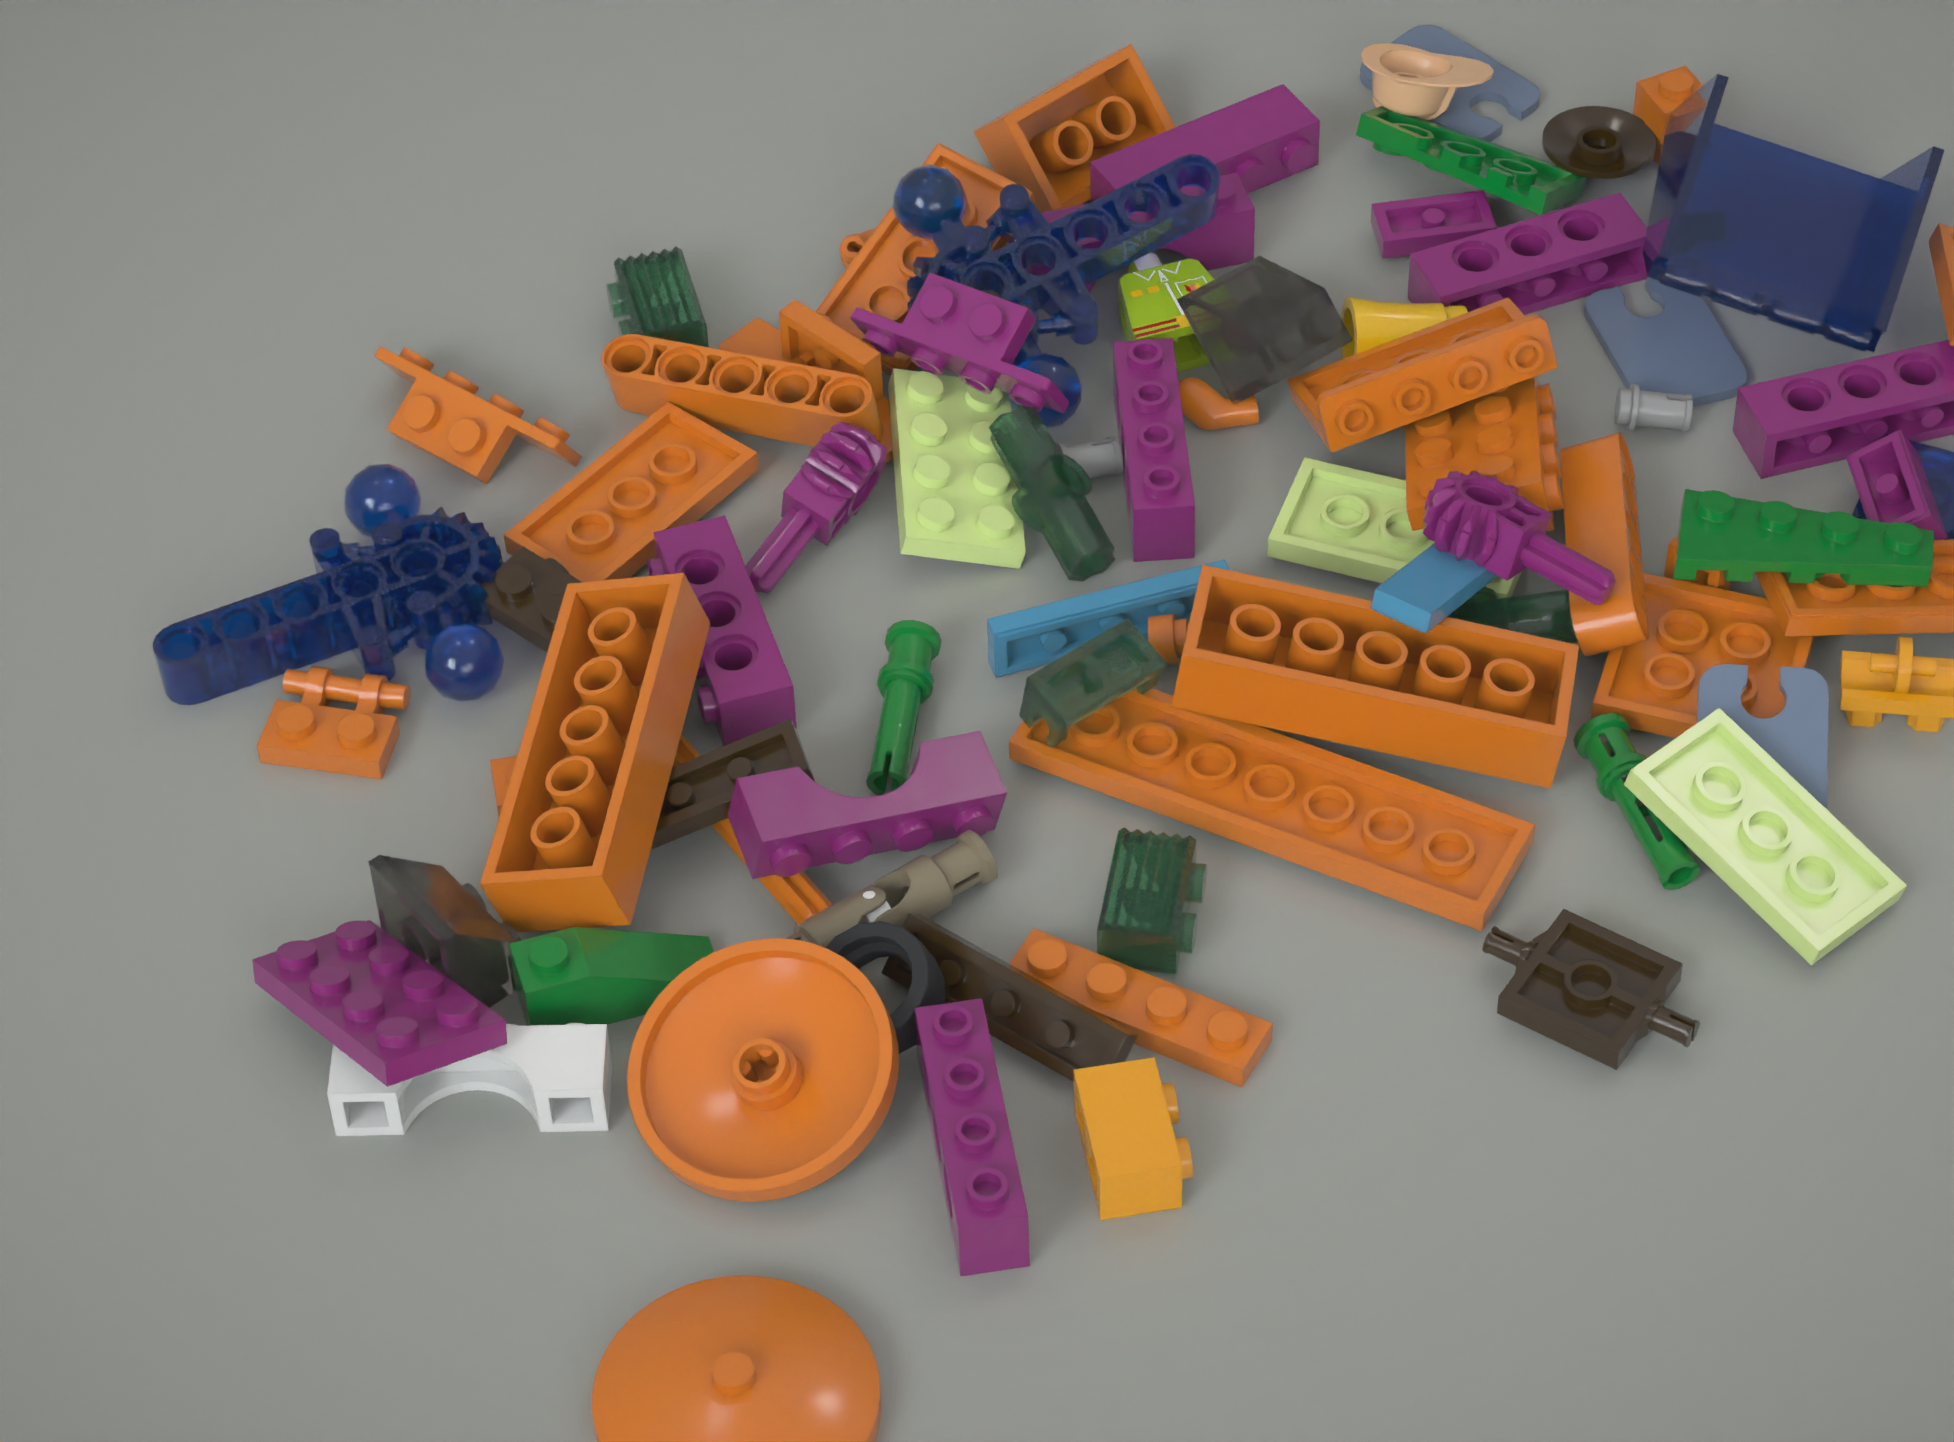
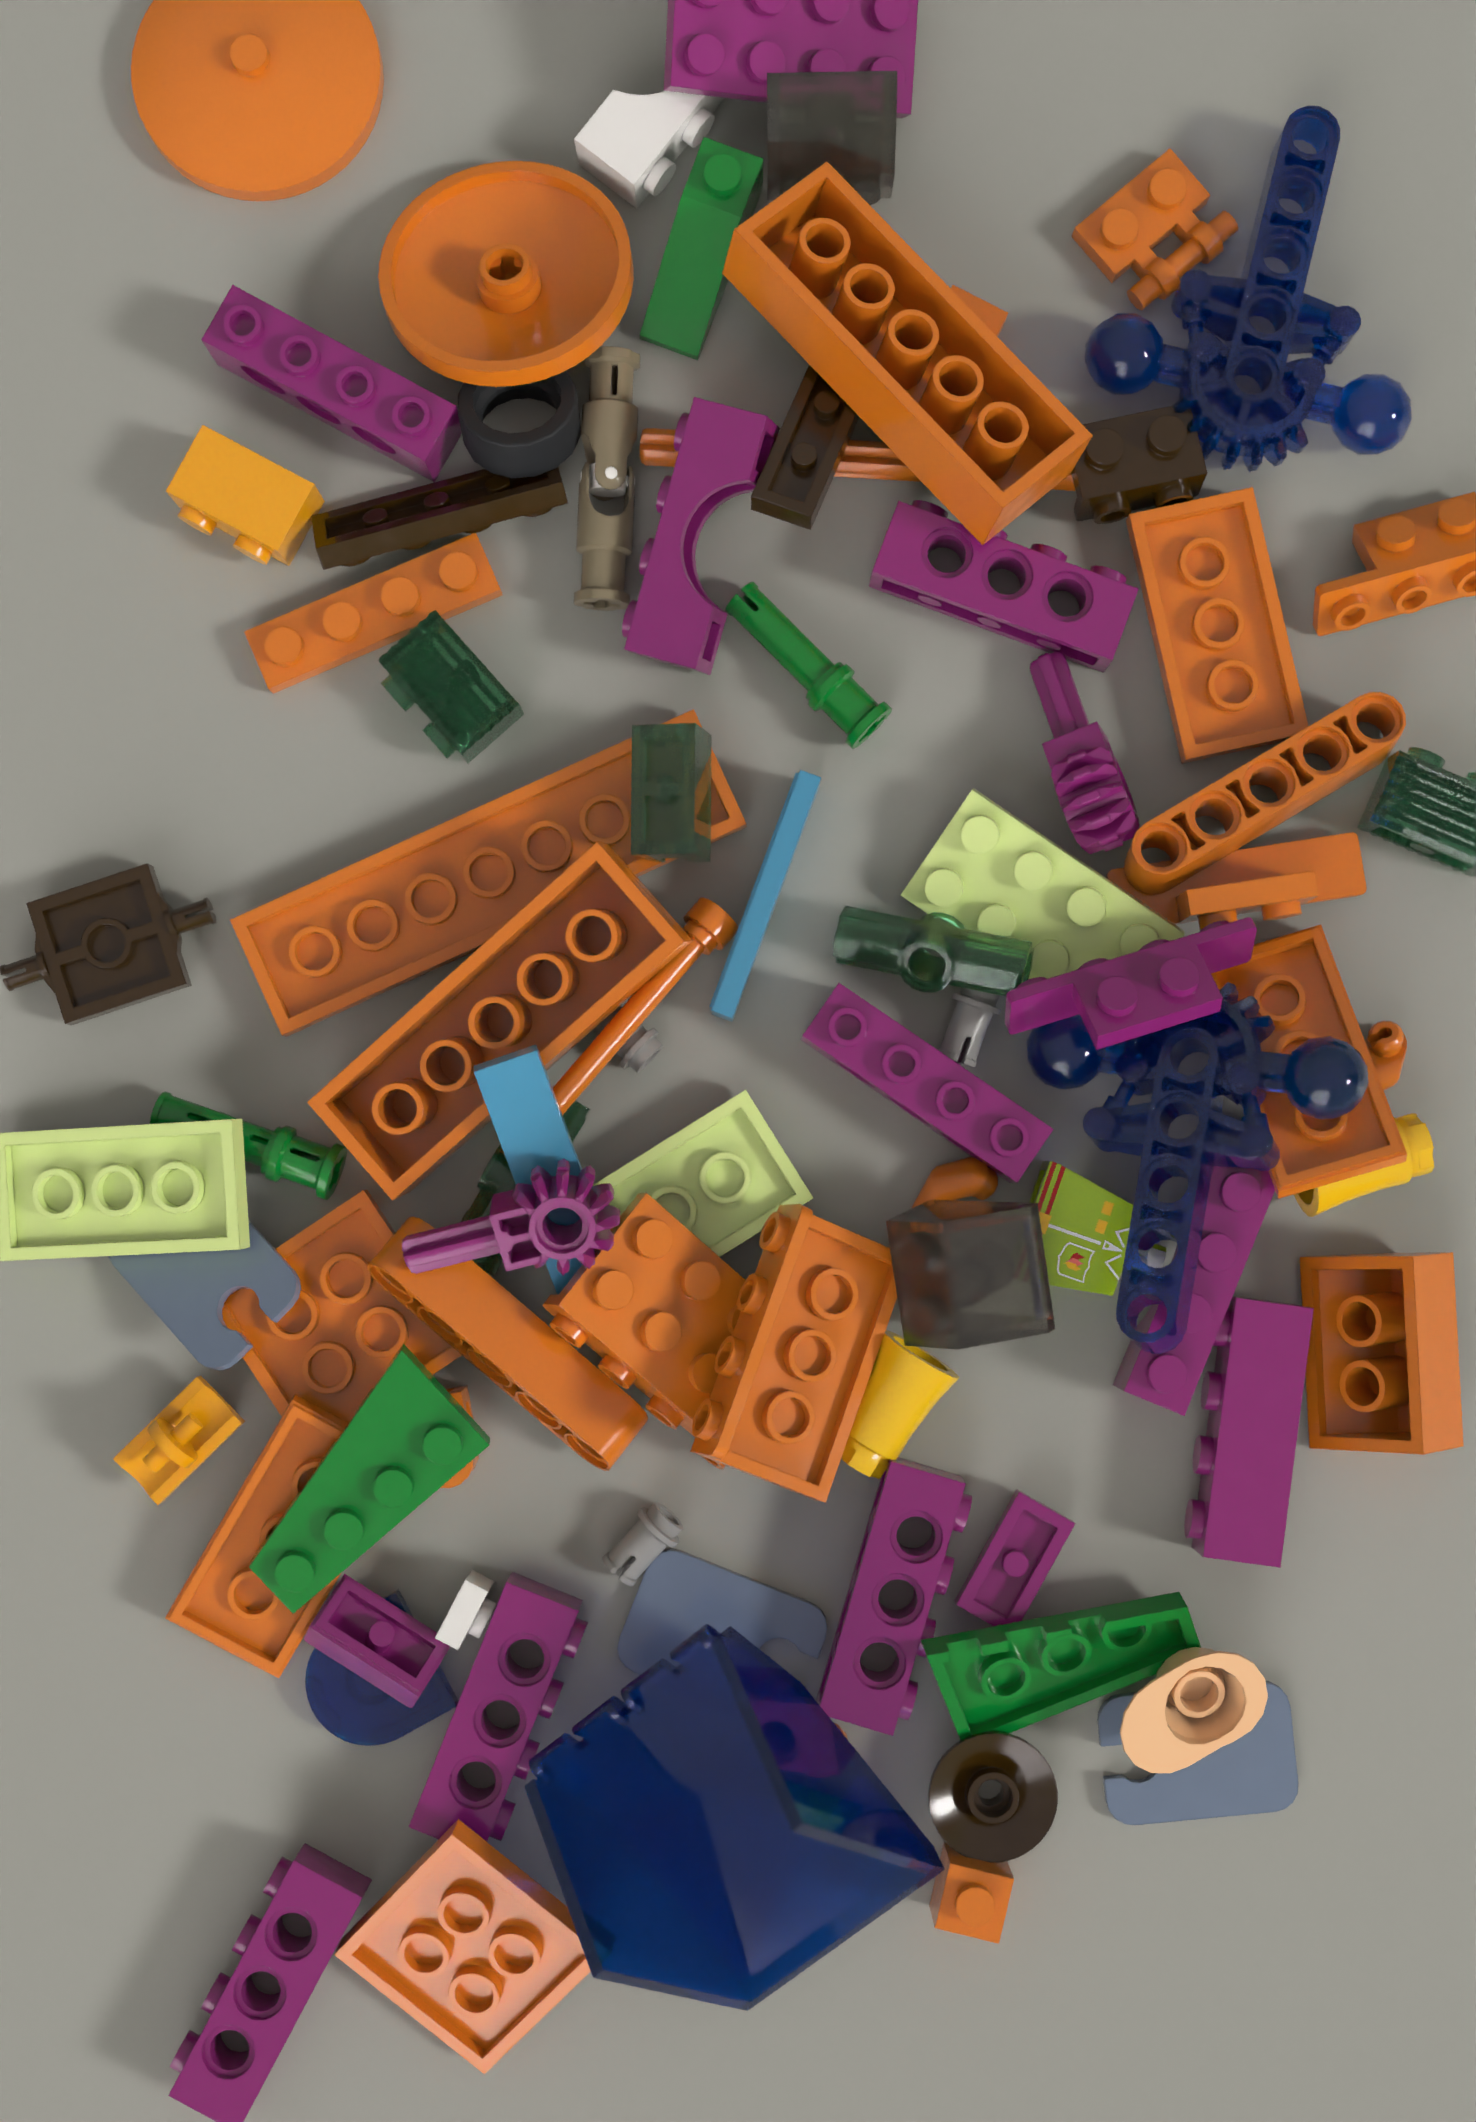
camera: 130 degrees right, 40 degrees up
(1815, 465) = (468, 1612): none -> white plate

